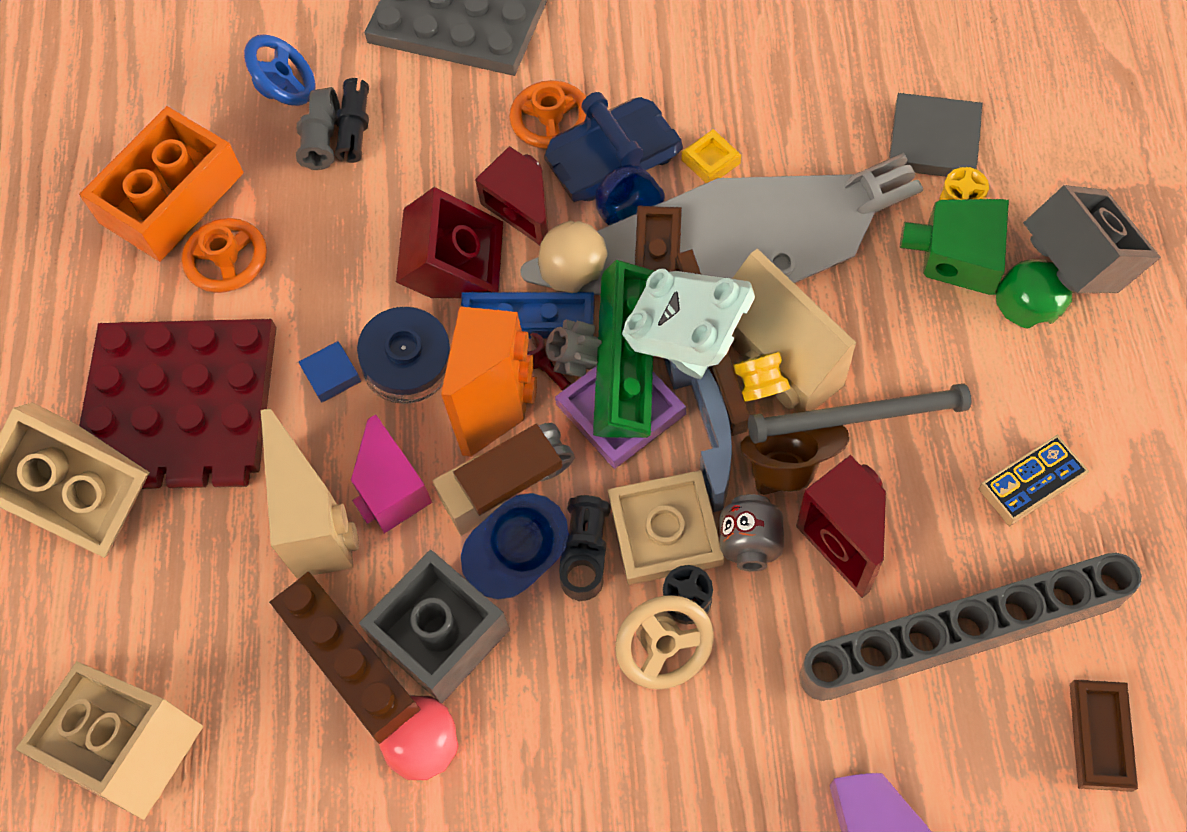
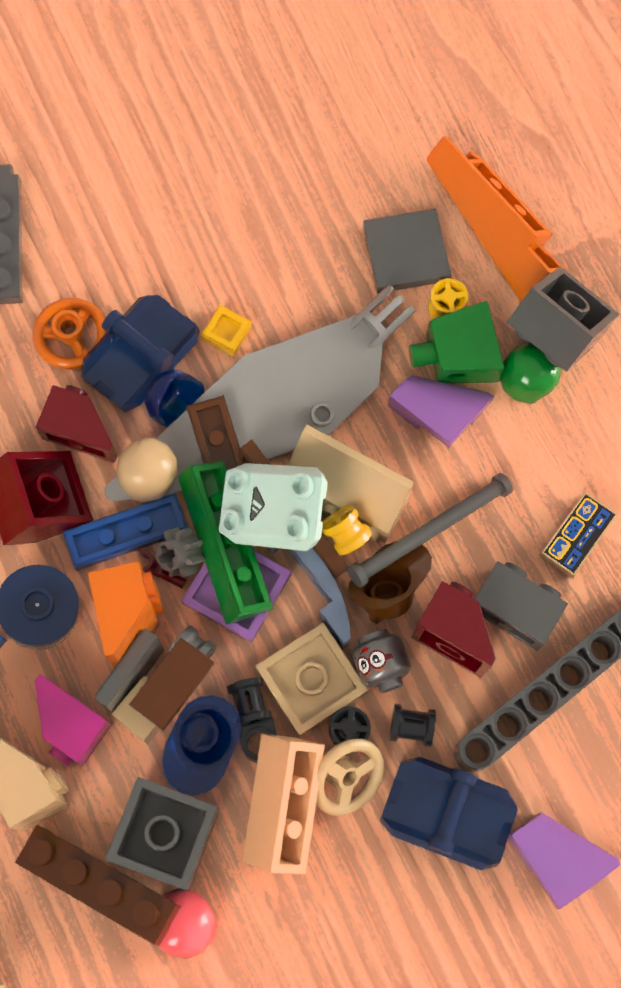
camera: 30 degrees left, 10 degrees up
(468, 437) = (130, 669): none -> dark grey tile
(579, 641) = (283, 804): none -> light nougat brick
(761, 616) = (412, 725): none -> black bush
(771, 730) = (449, 812): none -> dark blue shield
(914, 296) = (438, 406): none -> medium lavender slope
(935, 528) = (520, 605): none -> dark grey brick
(1045, 121) = (496, 216): none -> orange wedge

